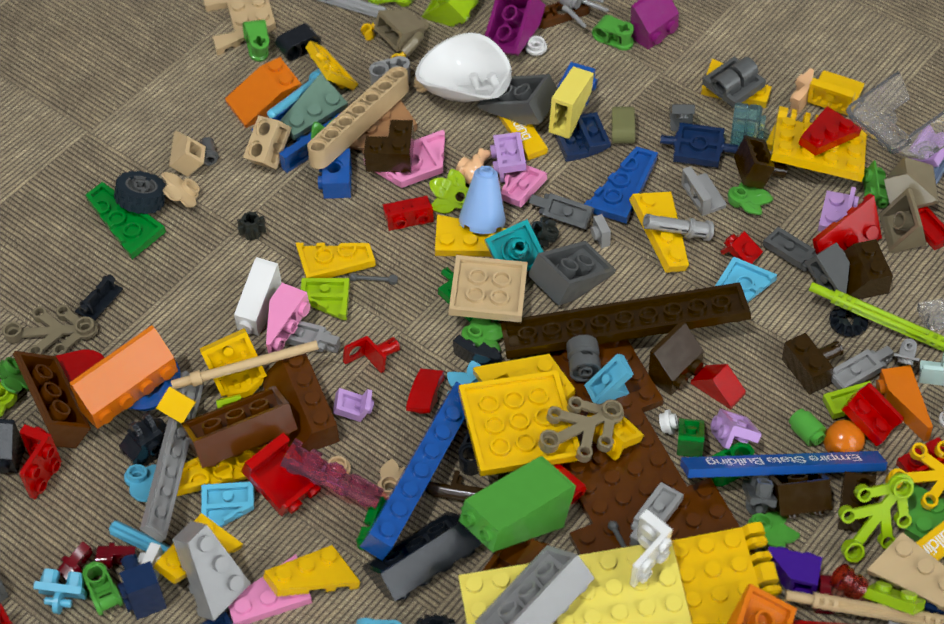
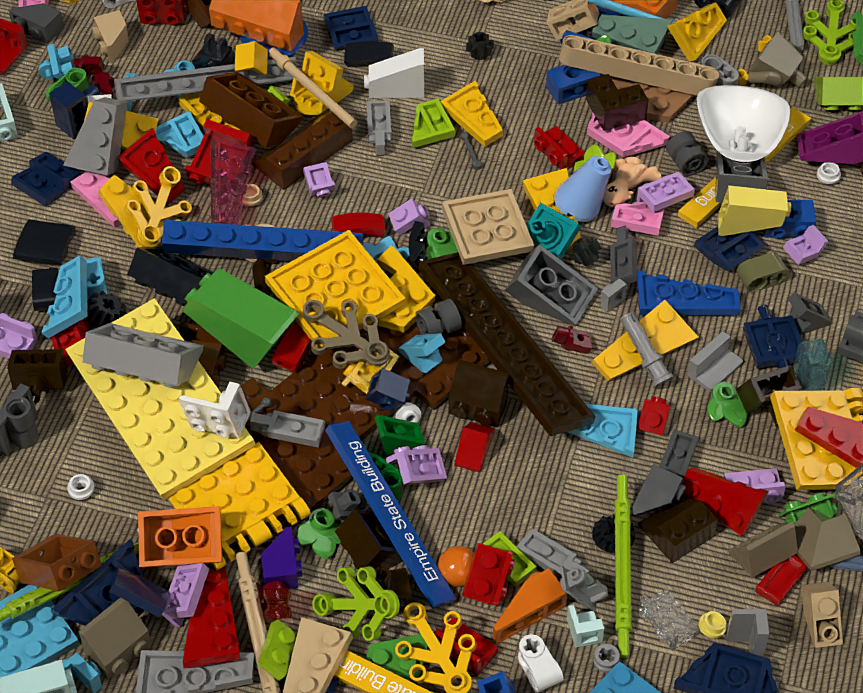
camera: 65 degrees right, 0 degrees up
(42, 526) = (112, 33): none -> tan slope
(165, 316) = (349, 26): none -> dark blue slope
(208, 314) = (367, 52): none -> black slope
(260, 540) = (146, 162): none -> red wing
(285, 312) = (380, 96): bright pink slope -> none
(351, 564) = (155, 211): none -> yellow plant
(374, 353) = (382, 176): red bracket -> none
(434, 349) = (406, 214): none -> lavender bracket
(469, 125) = (687, 153): none -> dark grey wheel
(609, 87) = (806, 246): none -> lavender bracket
(635, 276) = (572, 339): none -> dark red piece
(650, 420) = (388, 390): none -> dark blue brick
(807, 427) = (454, 528): bright green brick -> none
(809, 362) = (534, 507): dark brown brick -> none

